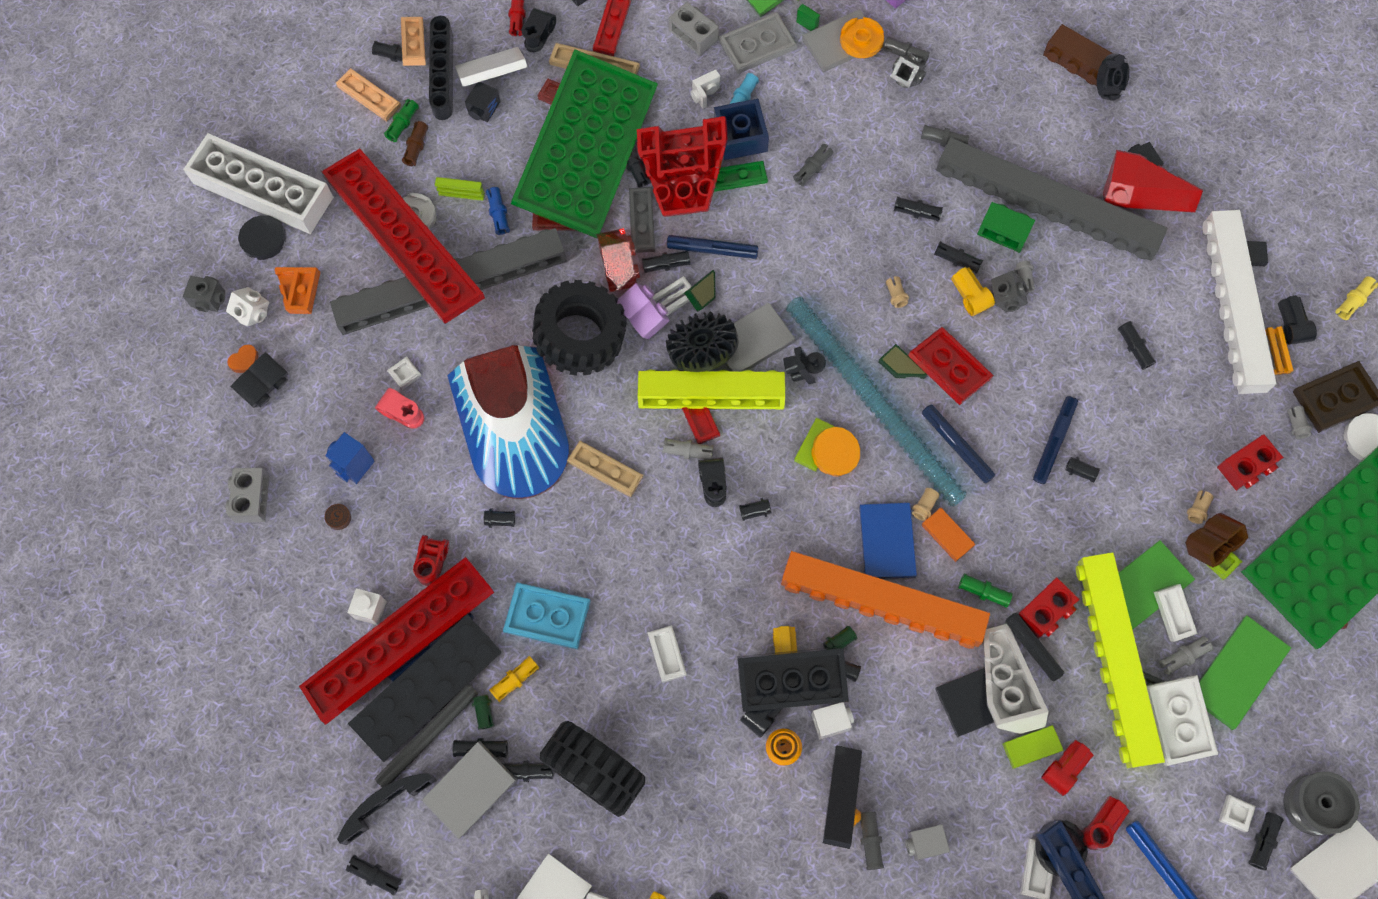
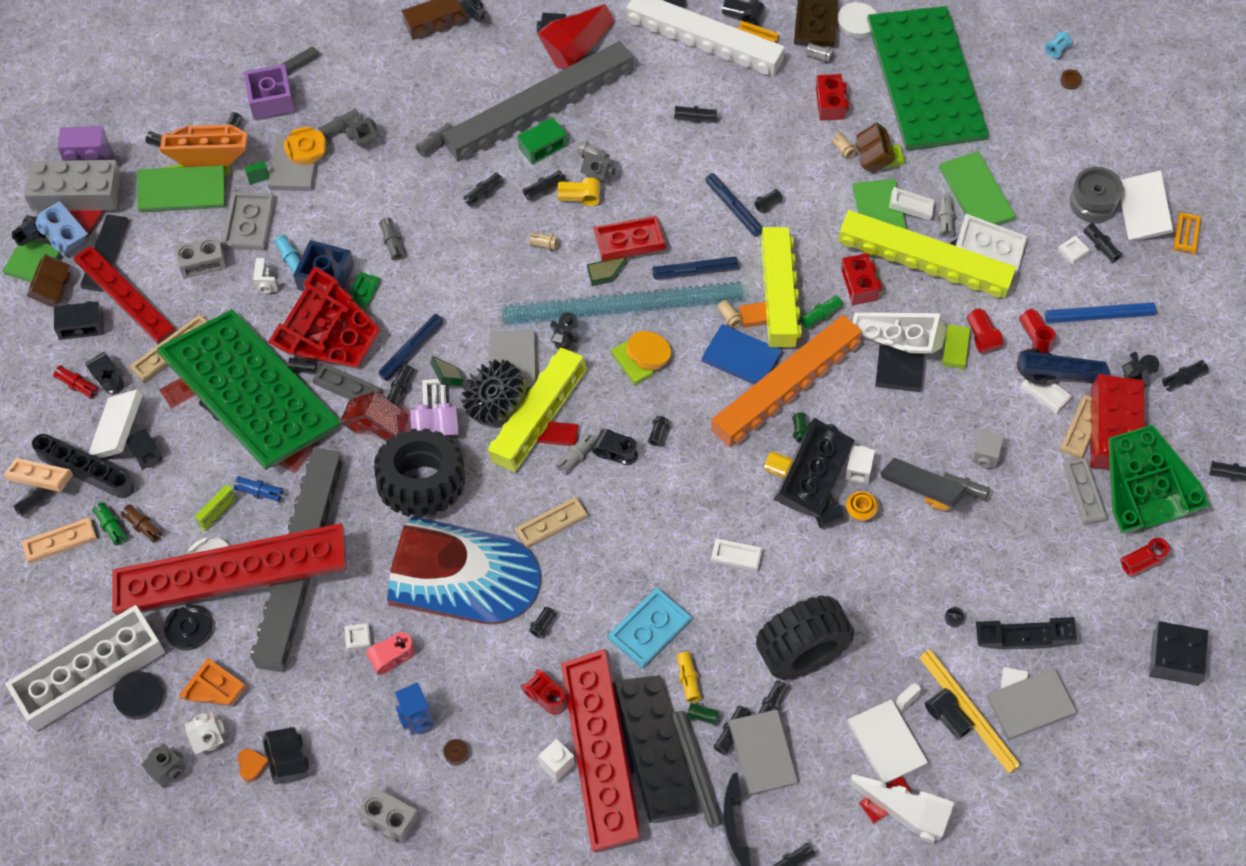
camera: 60 degrees left, 10 degrees down
(337, 241) = (188, 627): none -> black tile
(985, 533) = (779, 287): none -> neon yellow brick
(1034, 647) = (883, 304): black axle -> none

